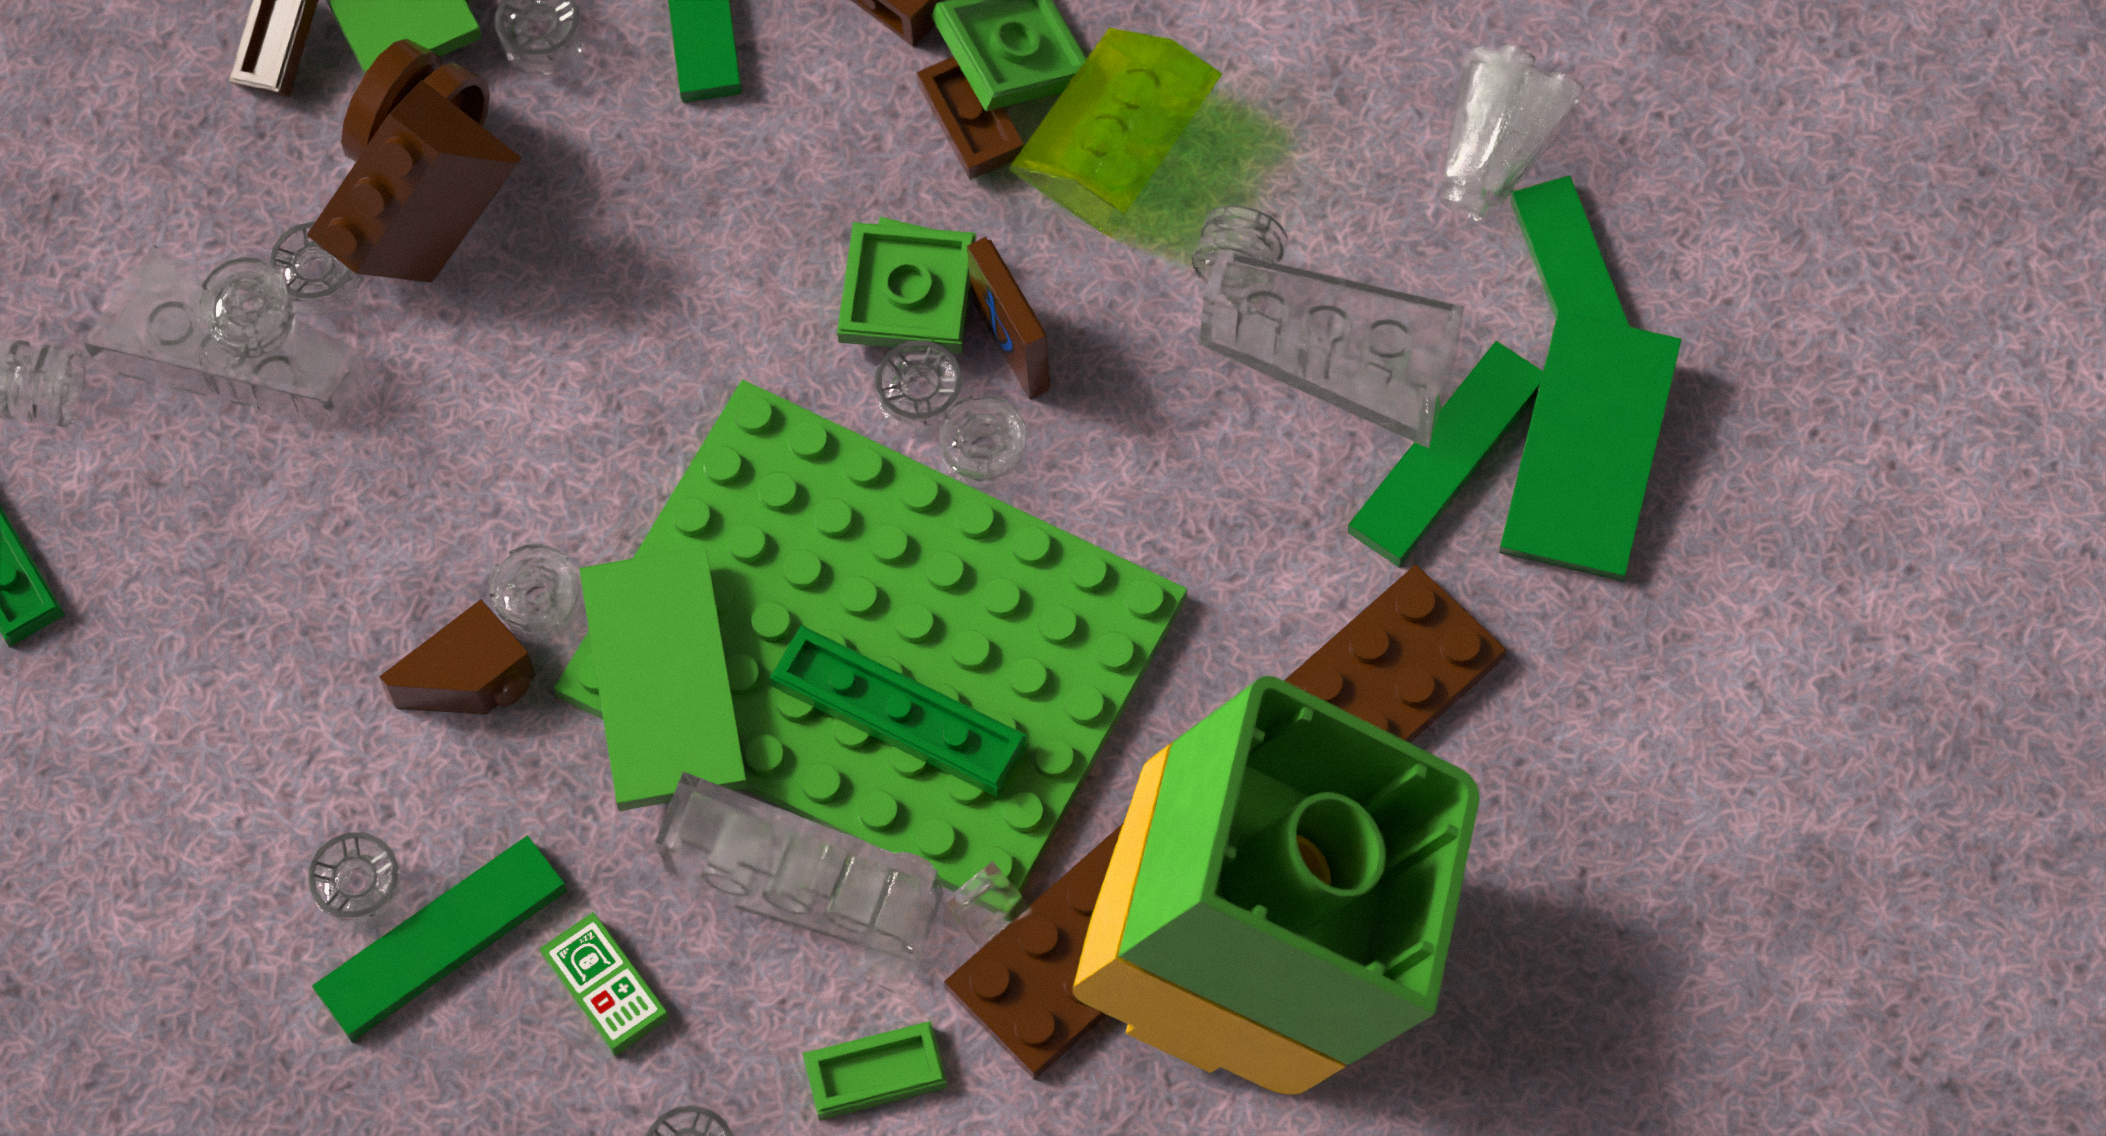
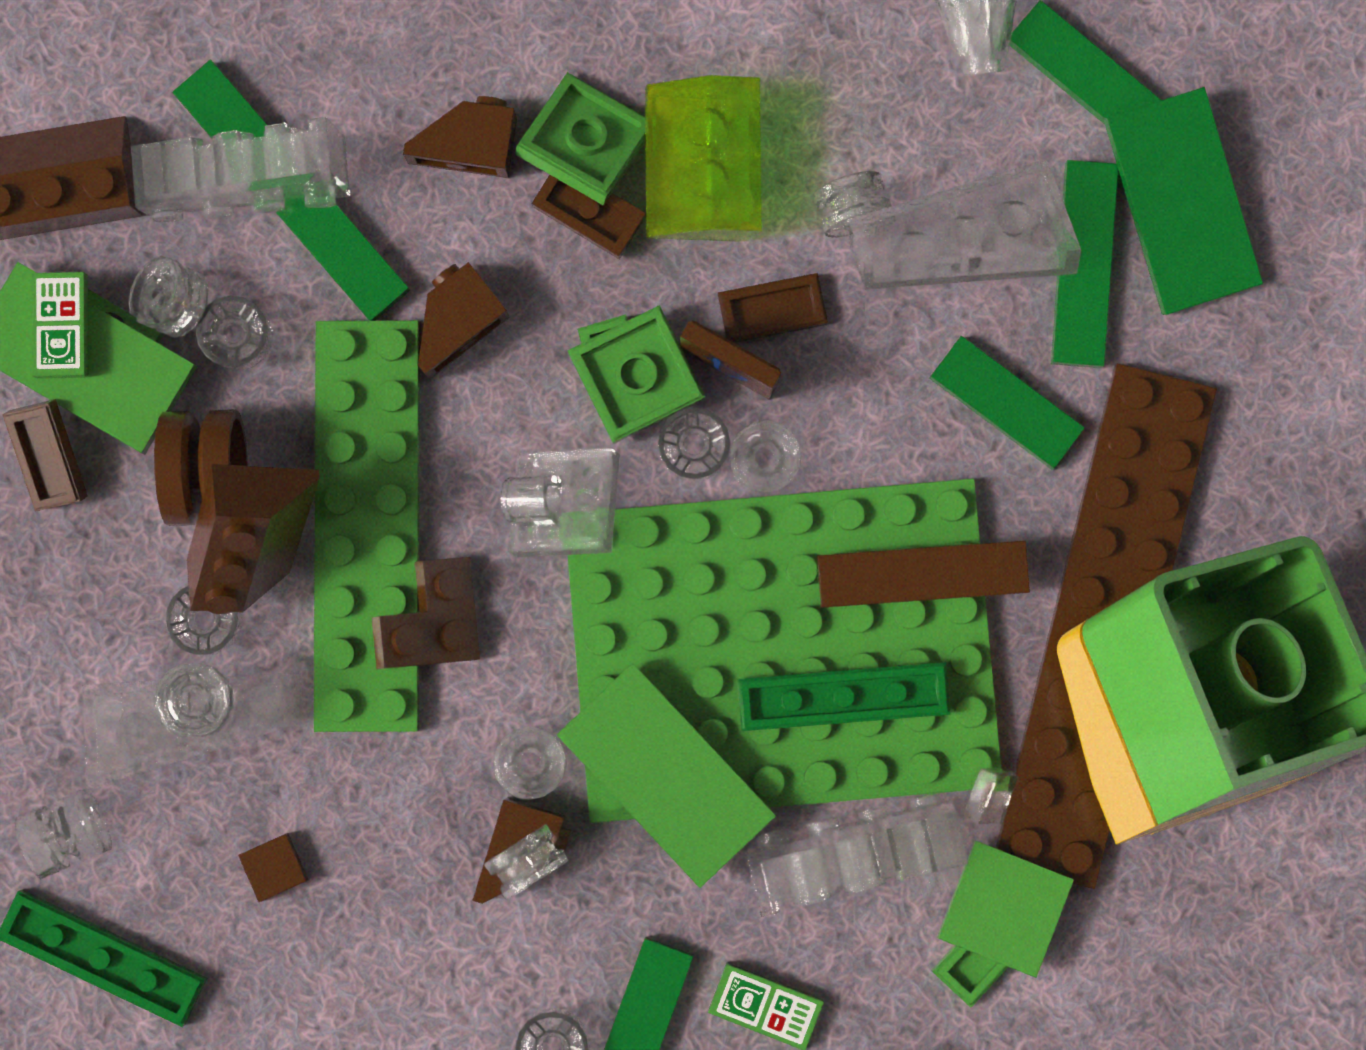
camera: 35 degrees left, 20 degrees up
(208, 545) = (273, 867): none -> reddish brown tile
(458, 653) = (526, 862): none -> clear wheel
(536, 284) = (365, 519): none -> bright green plate
(537, 414) = (444, 627): none -> reddish brown plate
(743, 357) = (561, 502): none -> clear plate
(763, 137) = (457, 317): none -> reddish brown slope
(922, 1028) = (1005, 909): none -> bright green tile
(1065, 639) = (923, 574): none -> reddish brown tile
(1094, 312) = (772, 308): none -> reddish brown tile
(1273, 540) = (1006, 403): none -> green tile

